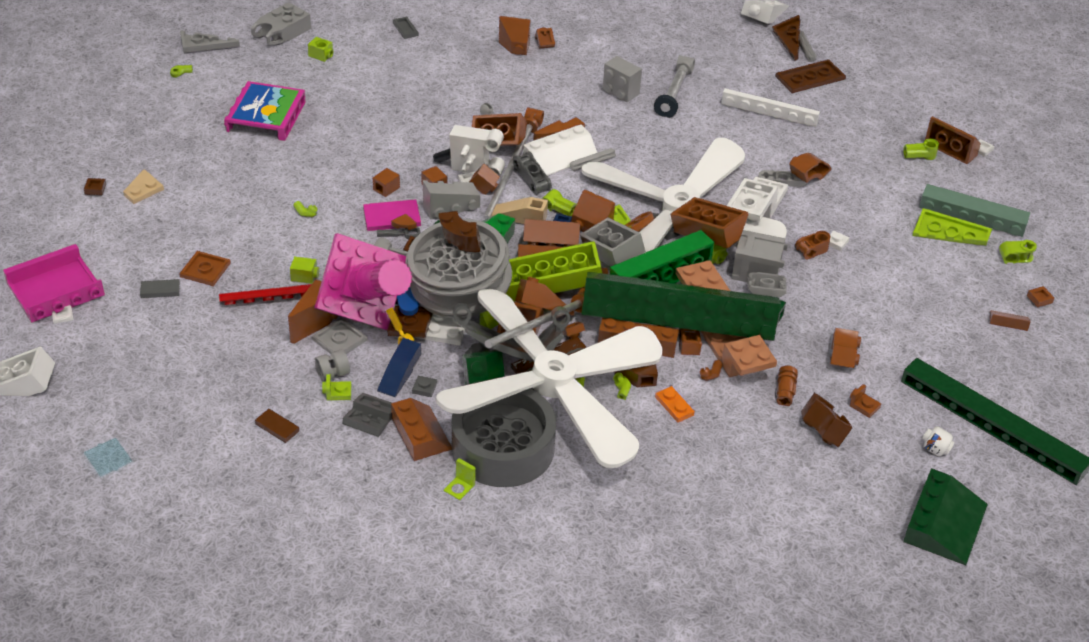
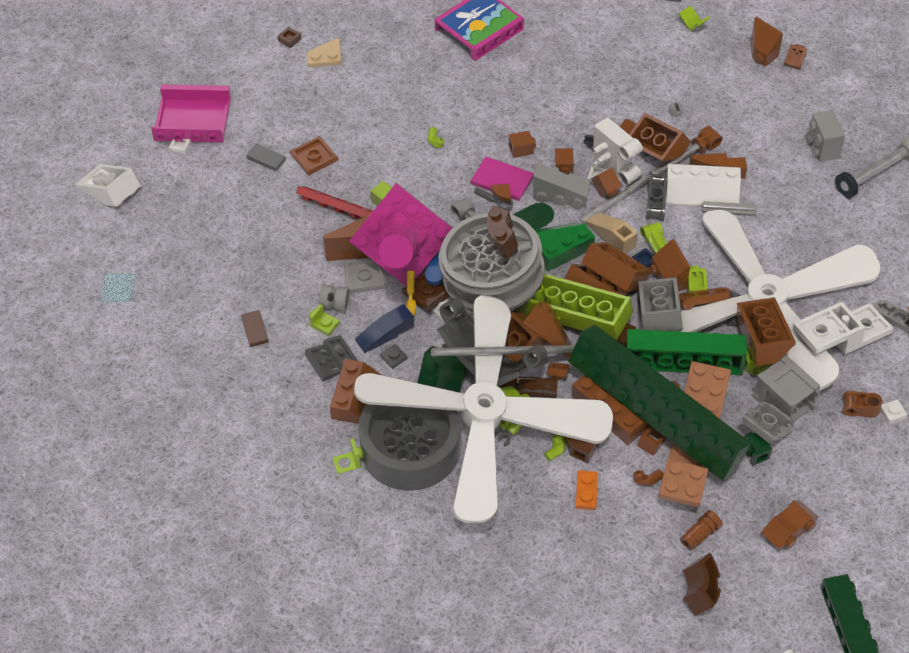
camera: 40 degrees right, 10 degrees up
(440, 43) = (691, 18): none -> lime bracket
(863, 402) = (761, 587): dark orange bracket -> none

